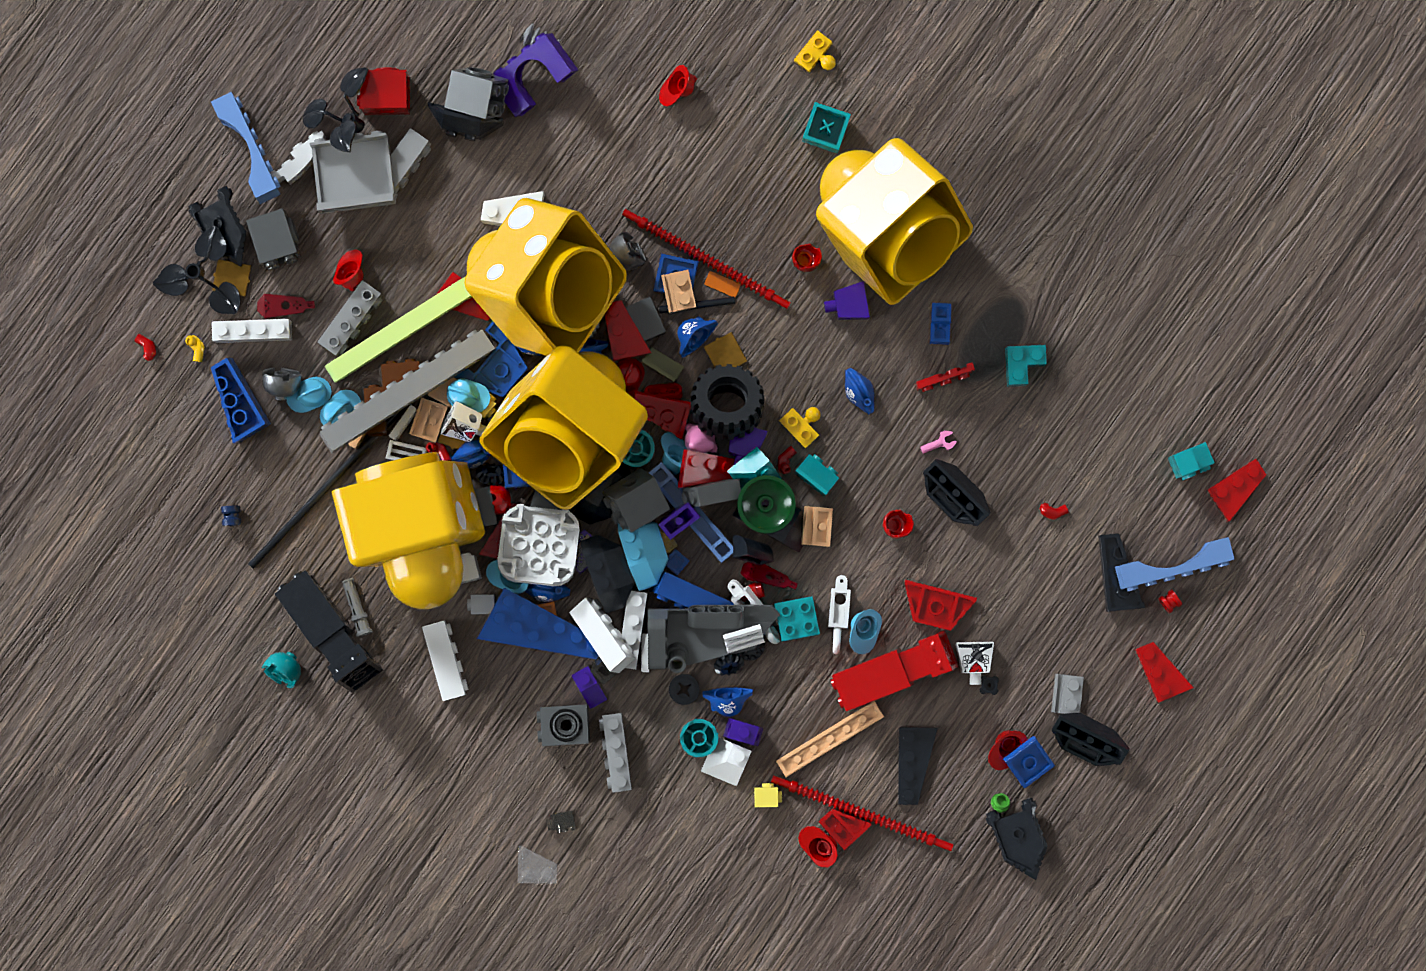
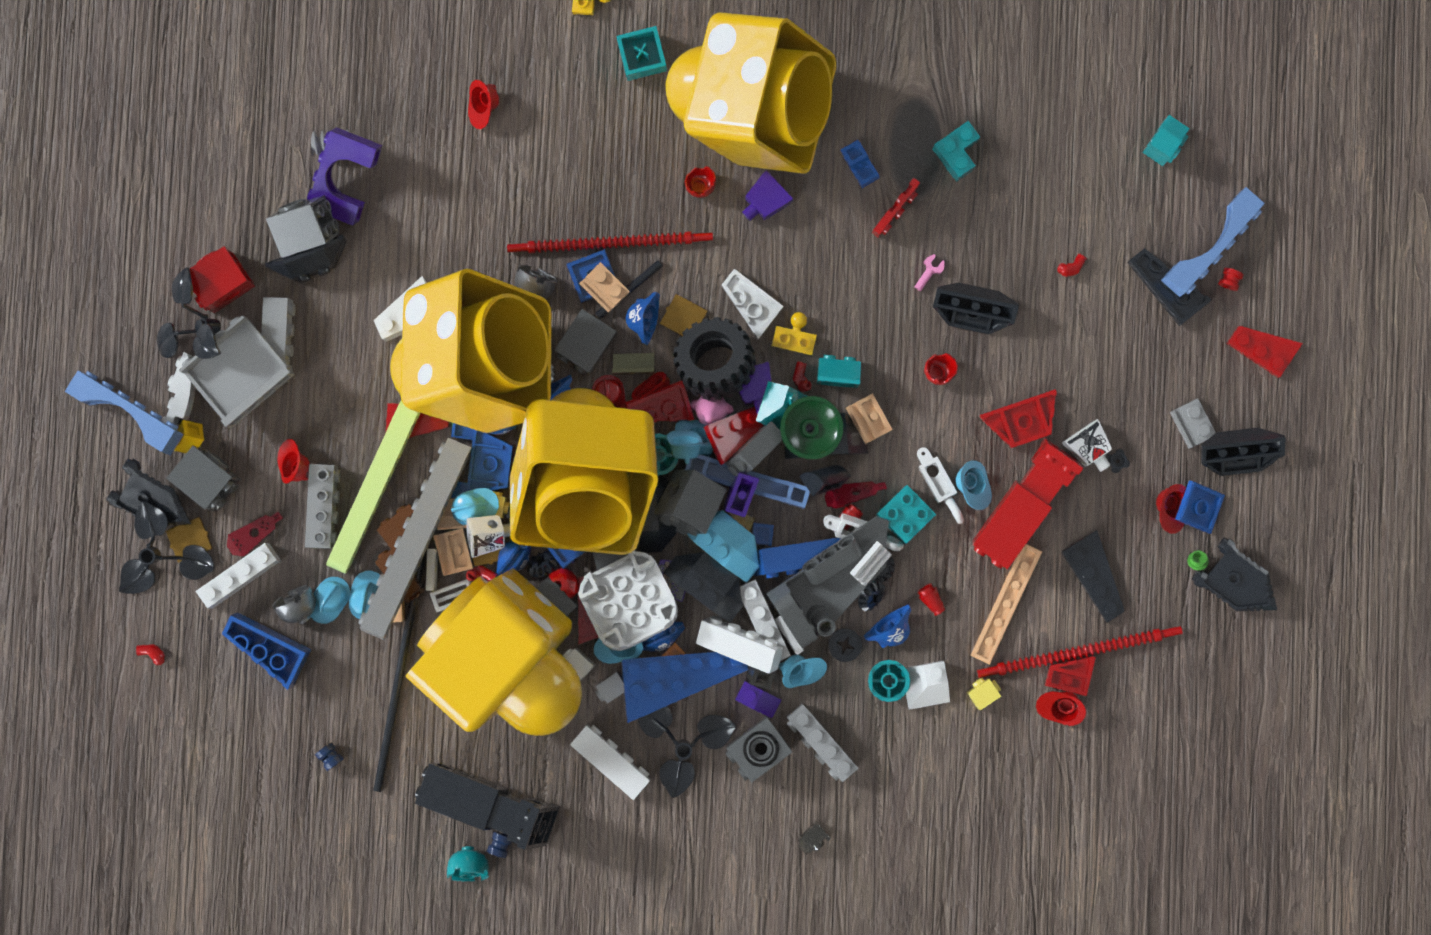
camera: 25 degrees left, 0 degrees up
(198, 347) = (198, 622): yellow arm -> none
(286, 200) = (192, 436): none -> yellow panel
(318, 668) = (499, 845): none -> dark blue wheel
(359, 616) = (506, 772): light grey pin -> none
(489, 705) = (678, 775): none -> black plant
(535, 868) = (816, 896): clear wing -> none
(623, 333) = (580, 358): red wing -> none
(637, 687) = (802, 671): none -> medium azure piece
(660, 453) = (684, 444): none -> medium azure piece
(722, 284) = (639, 256): orange sticker -> none
(743, 732) = (924, 649): dark purple torso -> none
(774, 697) = (930, 597): none -> red cone
(785, 377) = (752, 302): none -> white wing
(859, 390) = (826, 271): blue hat -> none
(1236, 488) = (1222, 139): red wing -> none

